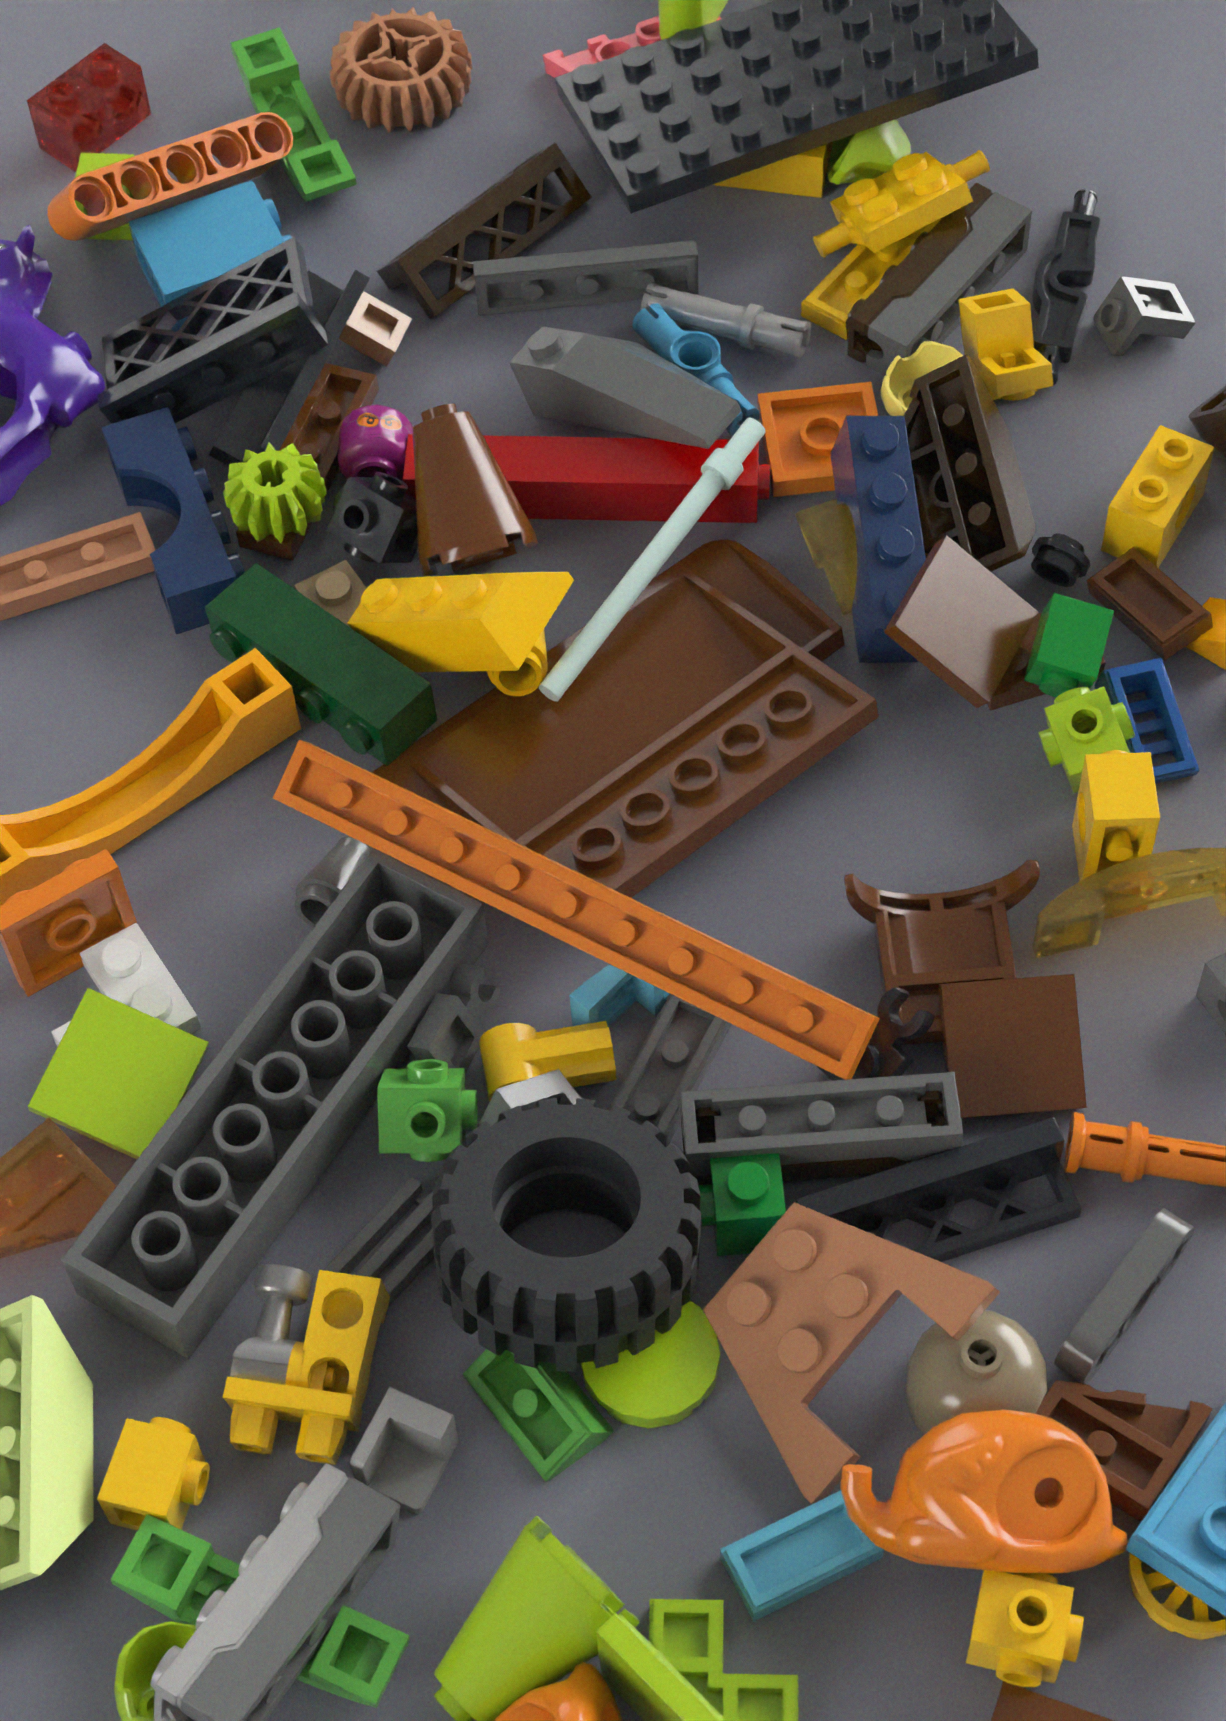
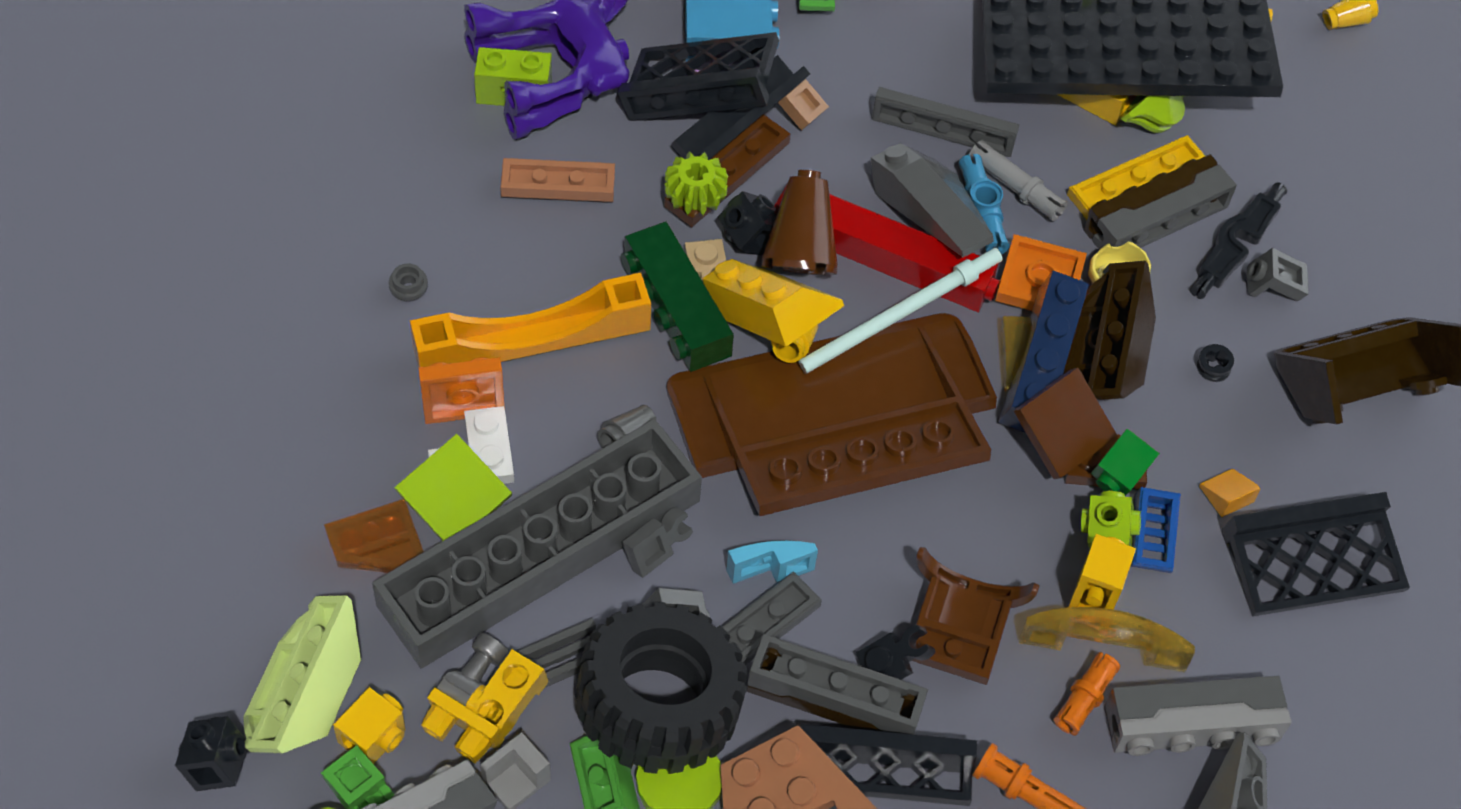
camera: 15 degrees right, 0 degrees up
(156, 472) = (634, 142): dark blue arch -> none
(373, 442) = (768, 174): magenta head -> none
(424, 1110) = (615, 582): bright green brick -> none
(470, 220) = (890, 58): dark brown fence -> none
(520, 1052) = (686, 572): yellow piece -> none
(578, 910) = (754, 504): orange plate -> none
(742, 1201) = (772, 711): green brick -> none
(900, 201) = (1158, 147): yellow plate -> none
(1001, 344) = (1177, 262): yellow brick -> none
(1013, 1044) = (975, 689): reddish brown tile -> none
(1059, 559) = (1149, 408): black plate -> none
(1103, 454) = (1219, 372): none -> black bush
(1149, 603) = (1192, 457): reddish brown tile -> none
(1158, 496) = (1227, 394): yellow brick -> none
(1167, 988) = (1087, 693): none -> orange pin

